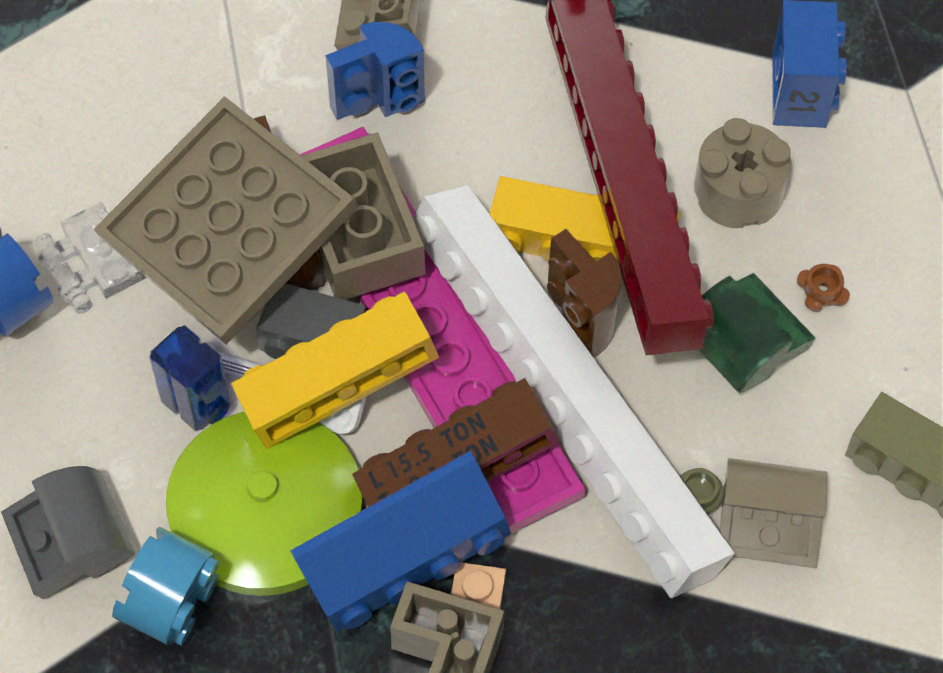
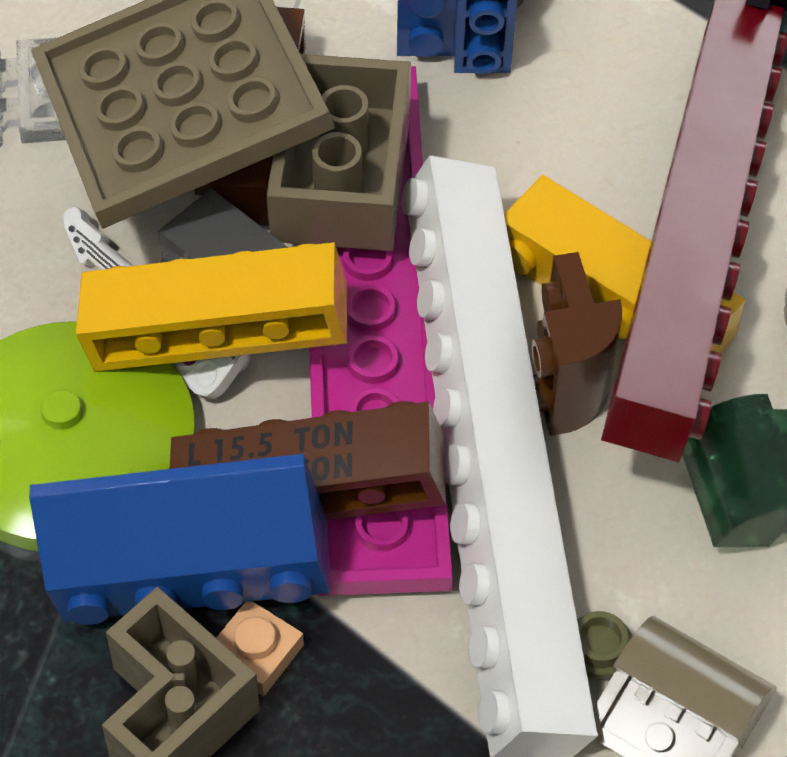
camera: 25 degrees right, 5 degrees down
(190, 378) = (47, 251): clear blue brick -> none

